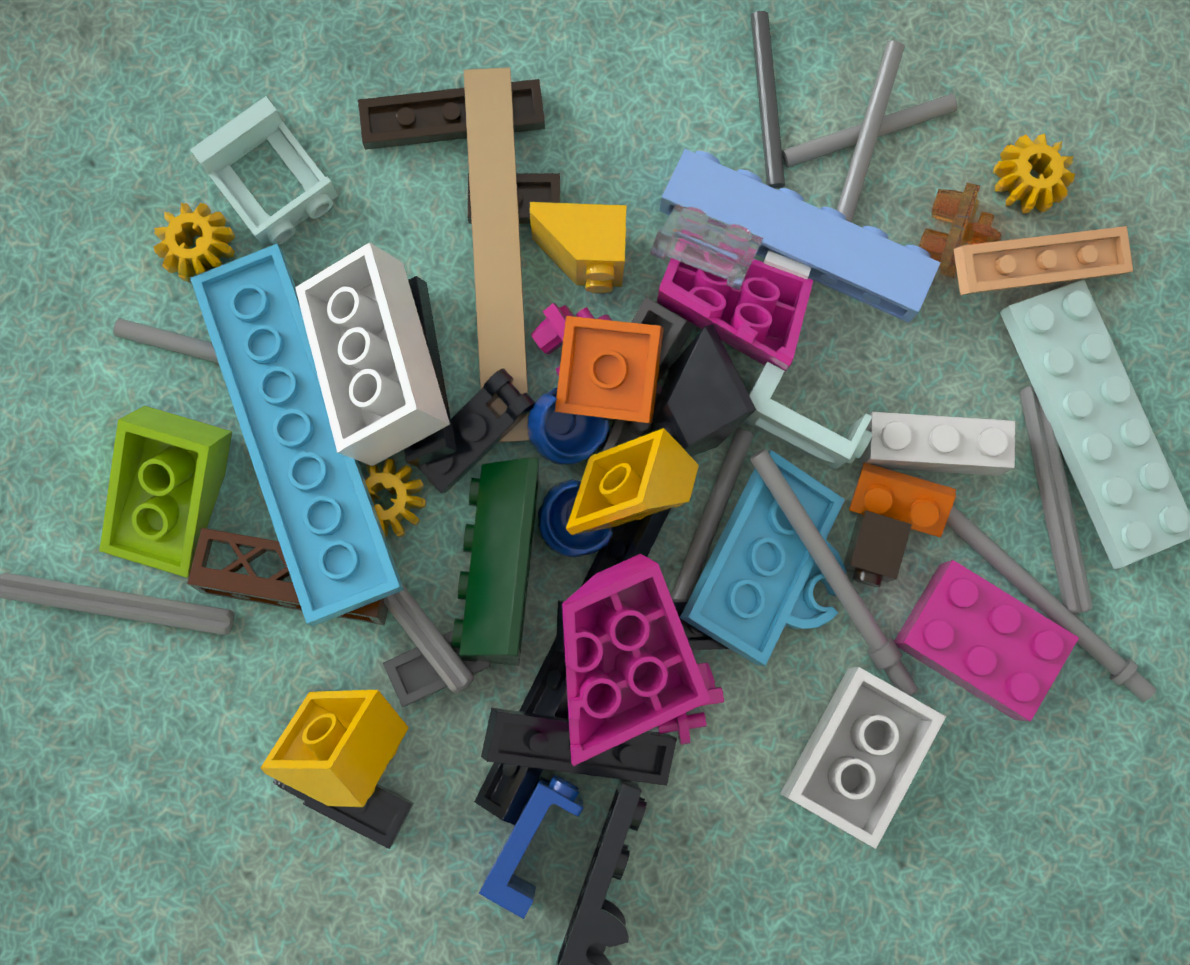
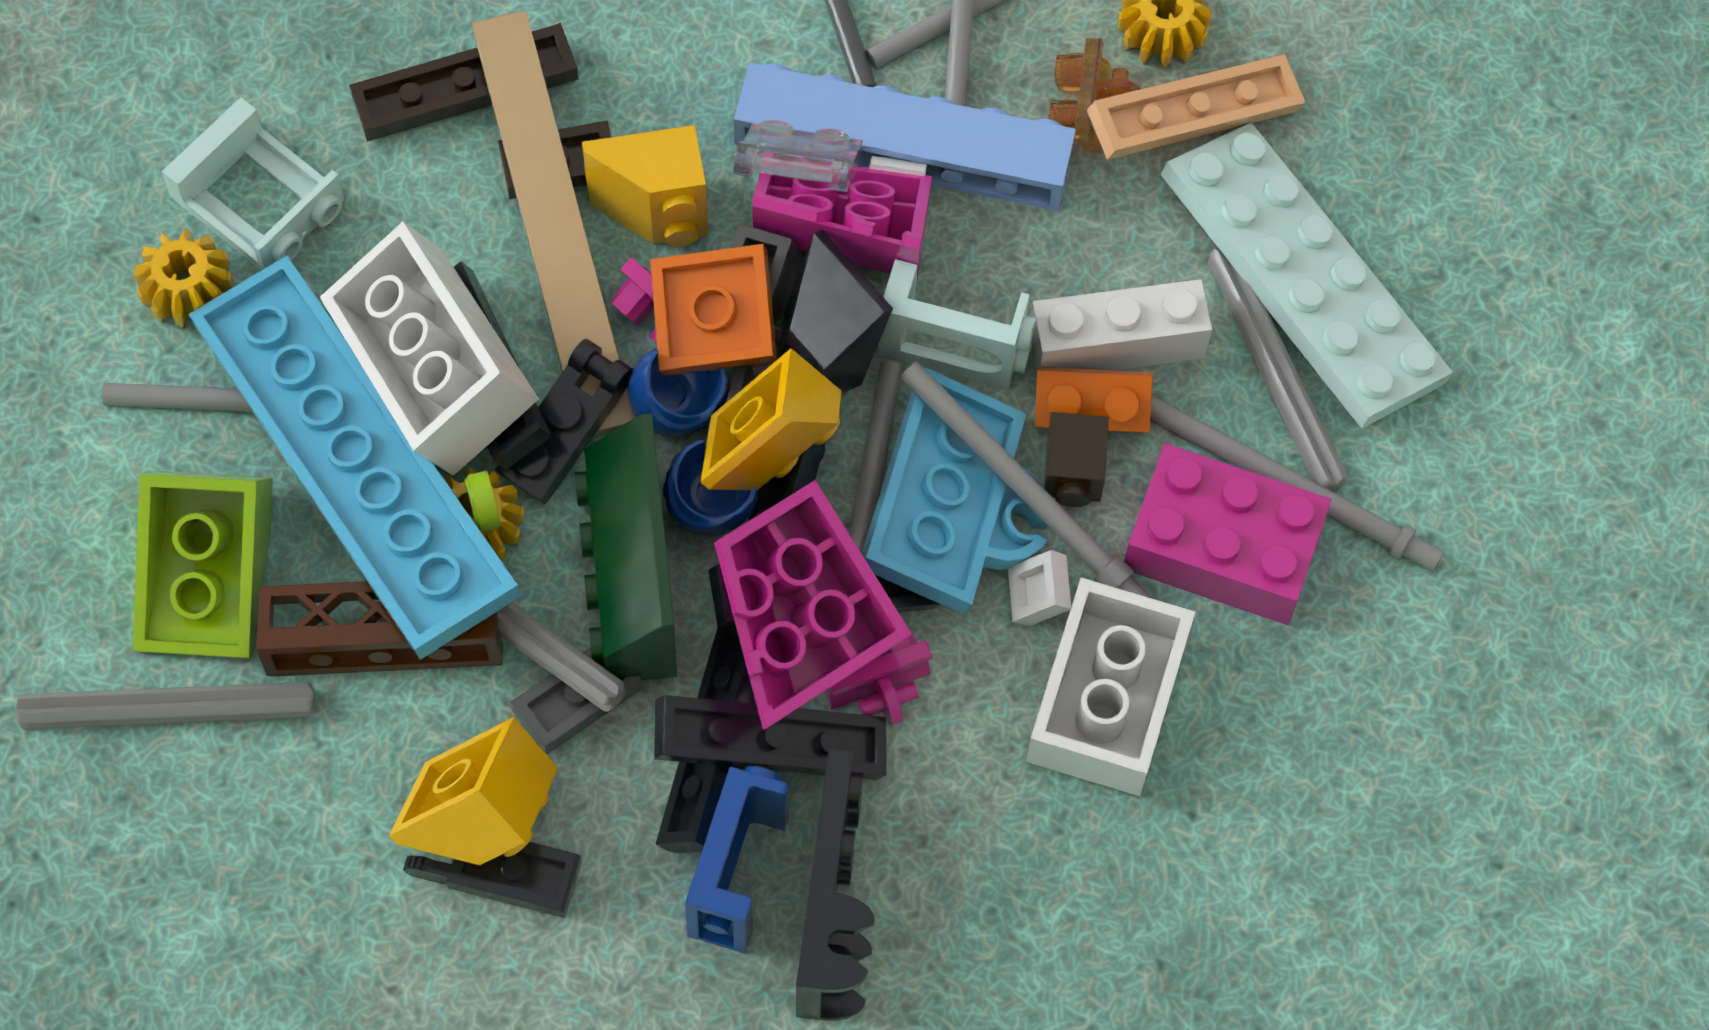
camera: 10 degrees left, 15 degrees down
(388, 500) = (482, 501): none -> lime tile
(823, 653) = (1039, 588): none -> white plate

